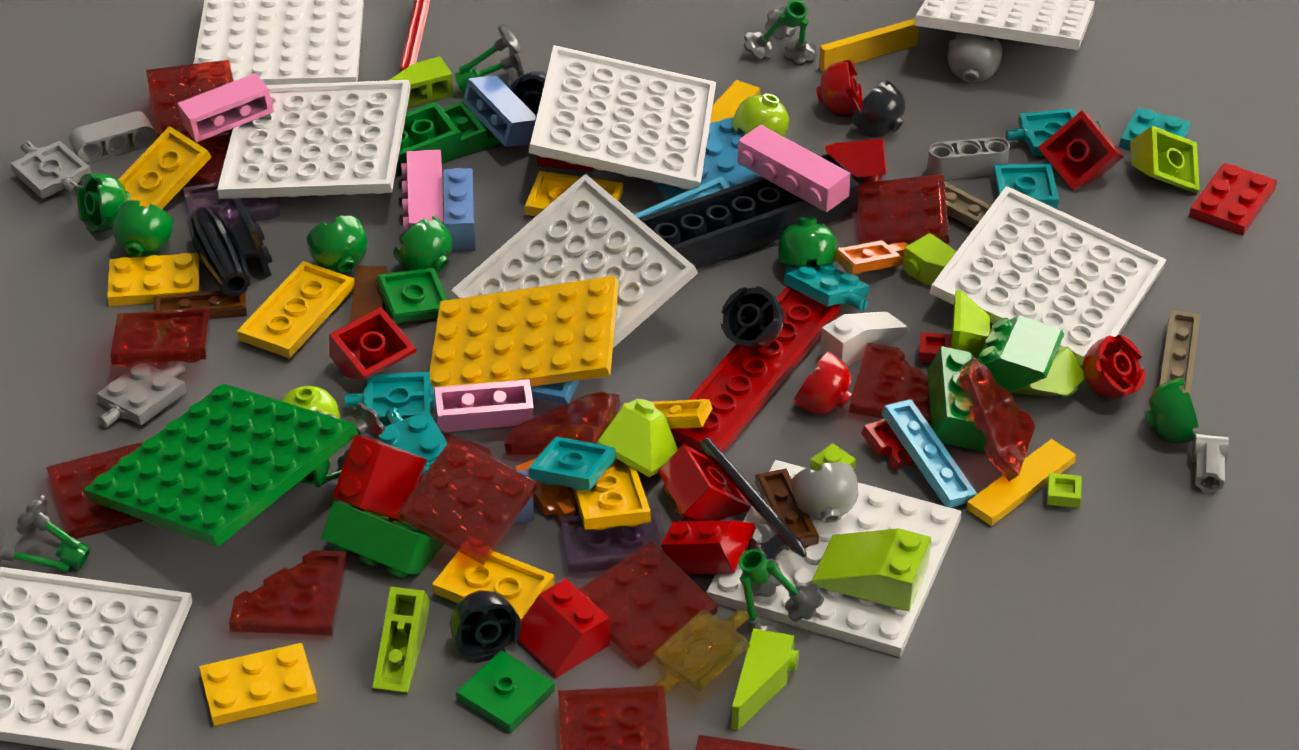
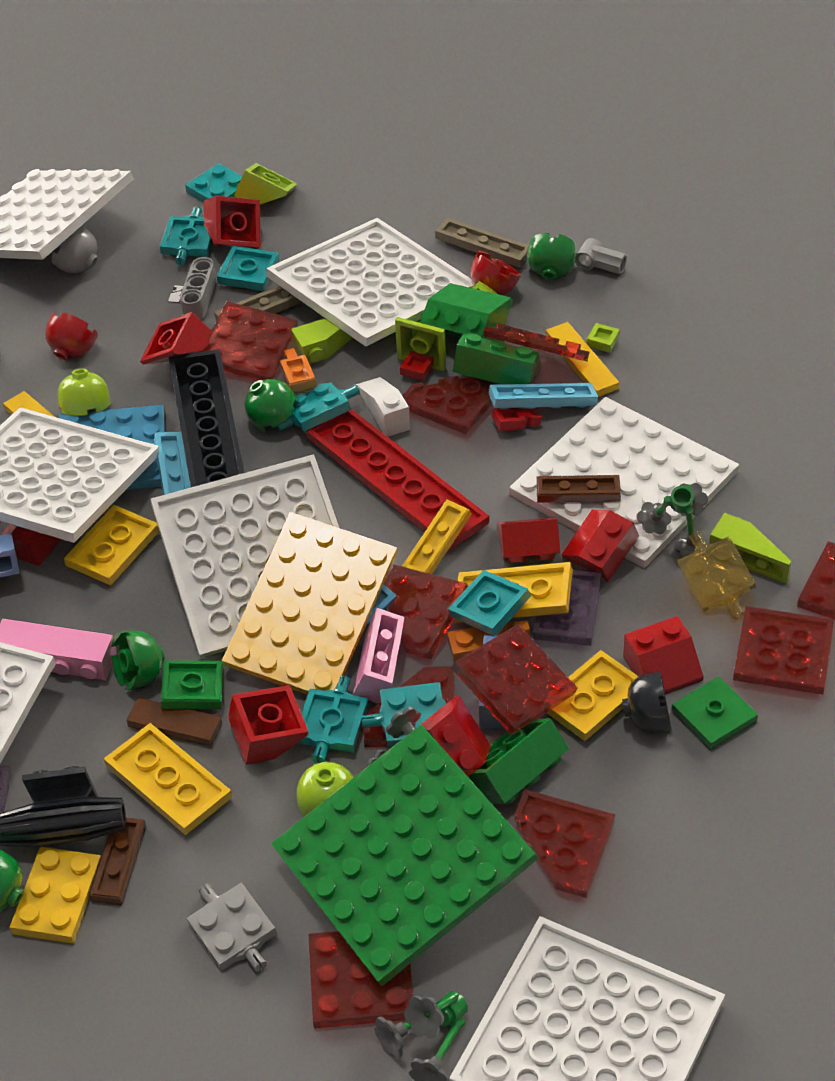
camera: 70 degrees left, 5 degrees up
(161, 337) = (166, 891): clear red plate -> none
(258, 684) = (658, 887): yellow plate -> none
(338, 244) = (106, 722): green cylinder -> none
(401, 639) = (642, 767): lime slope -> none
(459, 207) = (87, 617): medium blue brick -> none
(640, 437) = (463, 558): lime slope -> none
(646, 601) = (648, 594): clear red plate -> none
(752, 318) = (365, 447): black cylinder -> none
(784, 536) = (620, 492): black piece -> none
(793, 168) = (190, 376): bright pink brick -> none
(825, 387) = (441, 435): red cylinder -> none
(826, 492) = (584, 453): light grey cylinder -> none
(831, 454) = (520, 456): lime plate -> none
(870, 44) = (11, 309): yellow tile -> none
(876, 566) = (665, 449): lime slope -> none
(880, 111) = (112, 320): black cylinder -> none
(1233, 198) = (316, 169): red plate -> none

